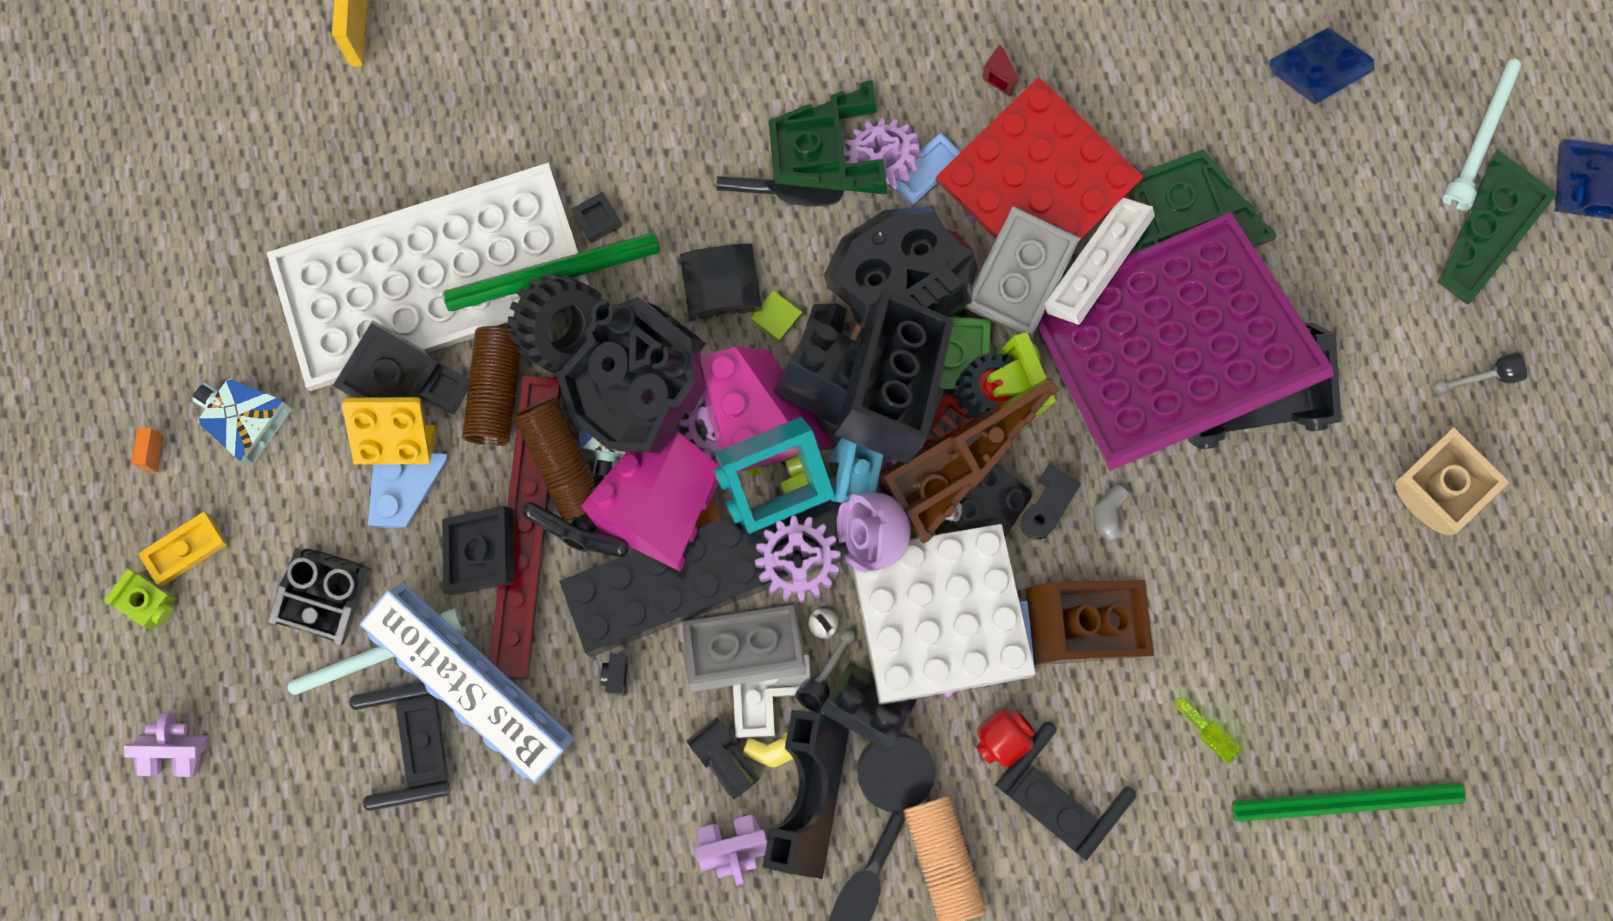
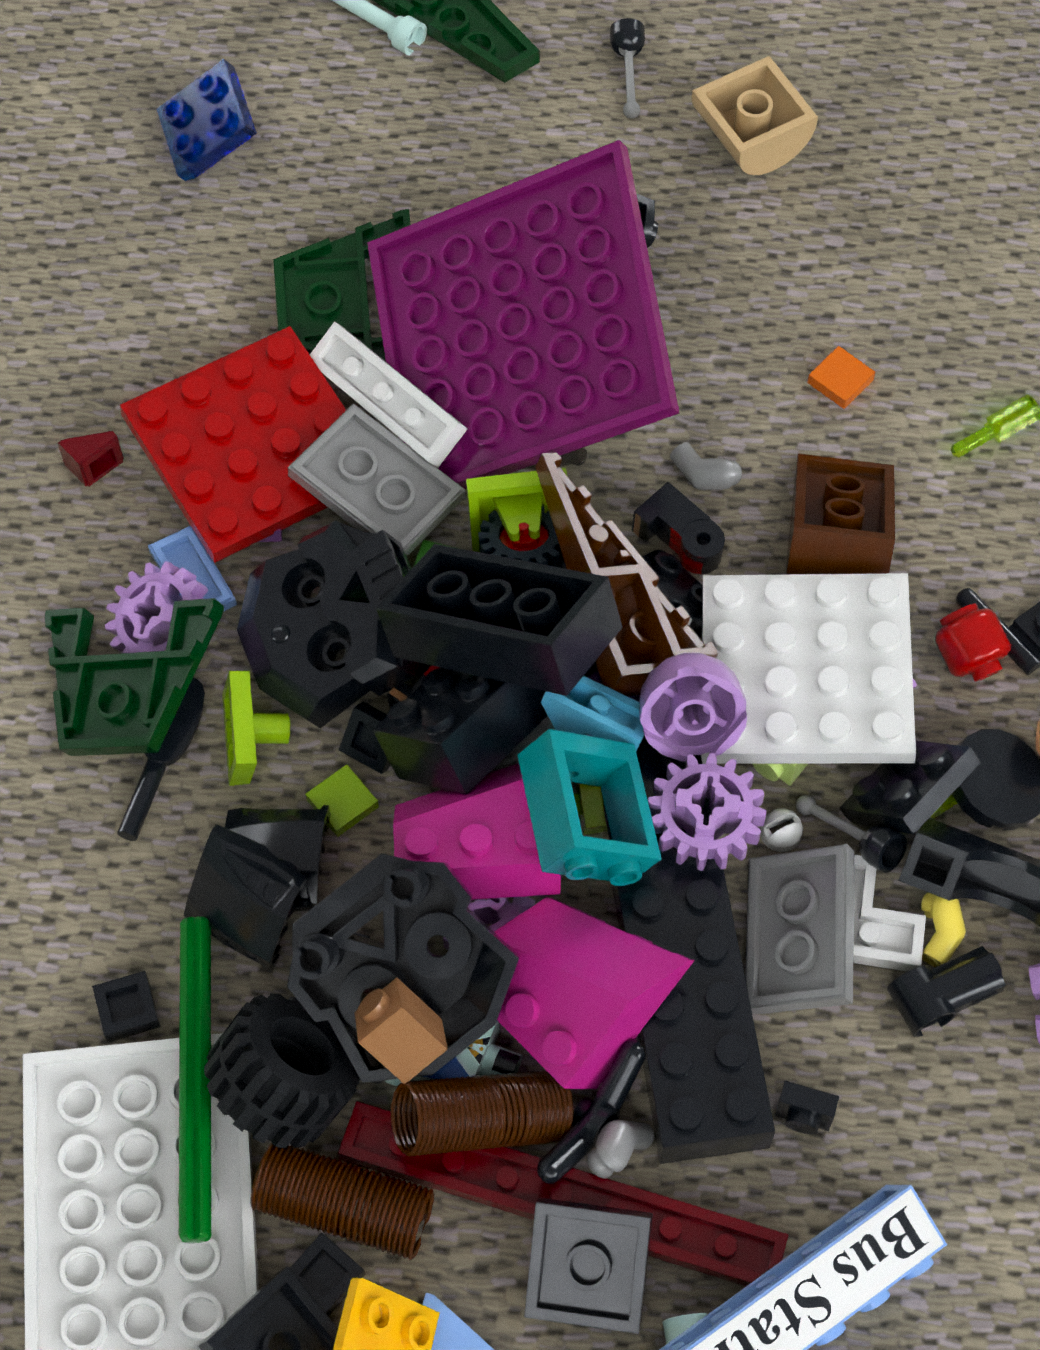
camera: 75 degrees left, 15 degrees down
(562, 552) = (616, 1146): none -> light grey arm
(585, 387) = (400, 1030): none -> medium nougat brick
(680, 268) = (244, 895): none -> black slope
(812, 239) = (247, 728): none -> lime tile
(1223, 601) = (841, 377): none -> orange tile

